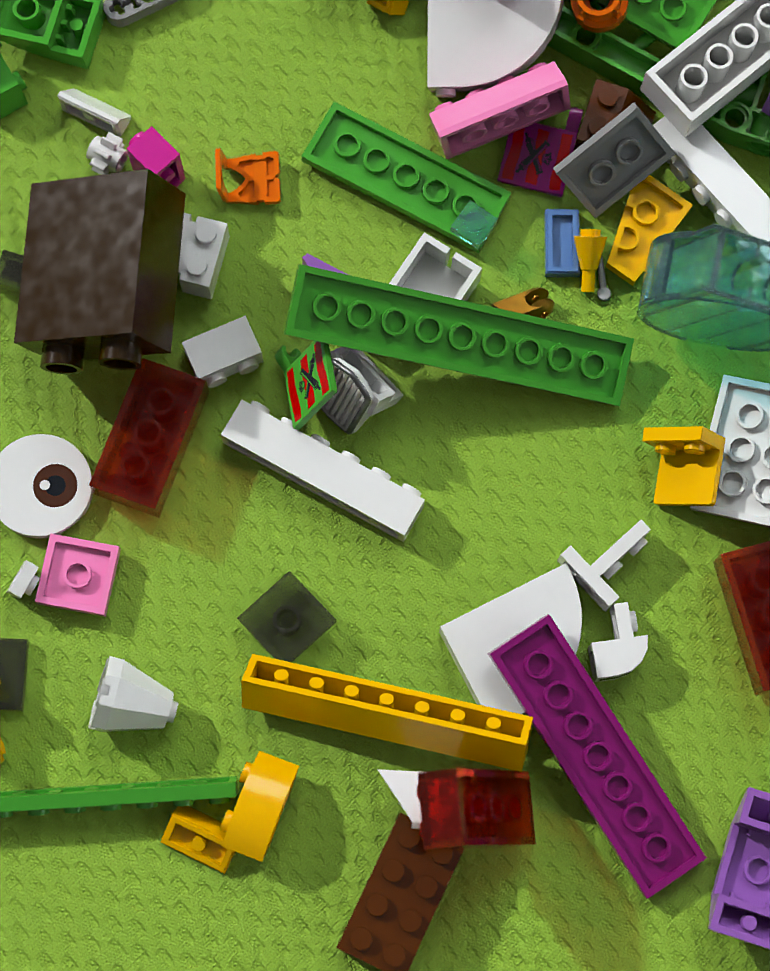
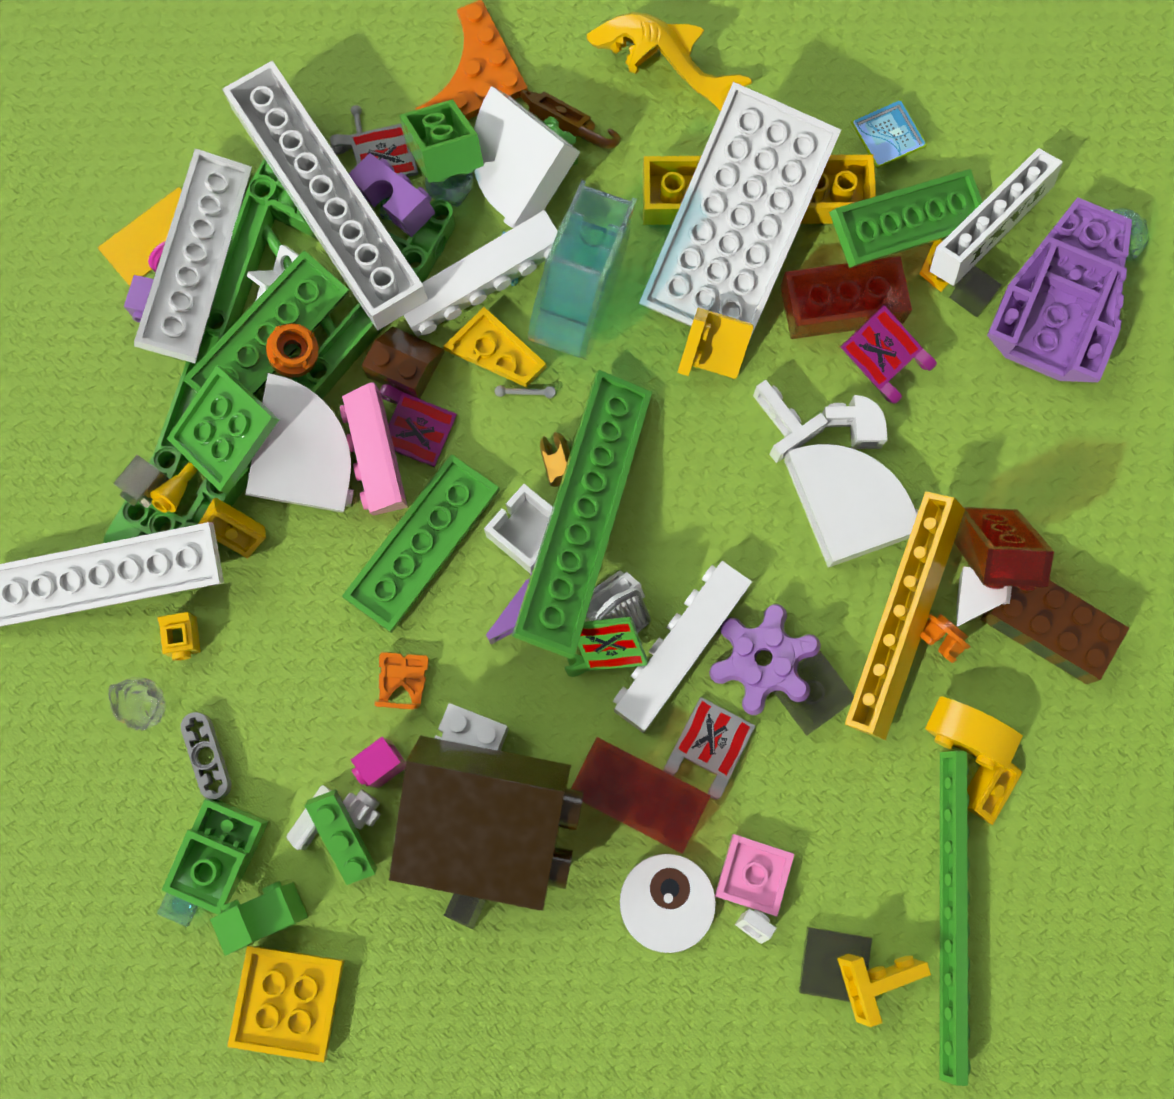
camera: 80 degrees left, 0 degrees up
(75, 136) = (341, 837): none -> bright green plate
(130, 700) = (875, 839): white cone -> none
(220, 518) = (712, 741): none -> flag
(223, 352) = (564, 721): white brick -> none
(326, 583) = (779, 674): none -> medium lavender plate
(379, 757) = (953, 643): none -> orange piece
(474, 224) = (477, 488): clear light blue plate -> none
(560, 248) = (499, 420): medium blue tile -> none
(589, 252) = (511, 395): yellow cone -> none
(597, 756) = (949, 450): magenta plate -> none
(614, 160) = (440, 360): light grey plate -> none
(709, 664) = (883, 349): none -> flag

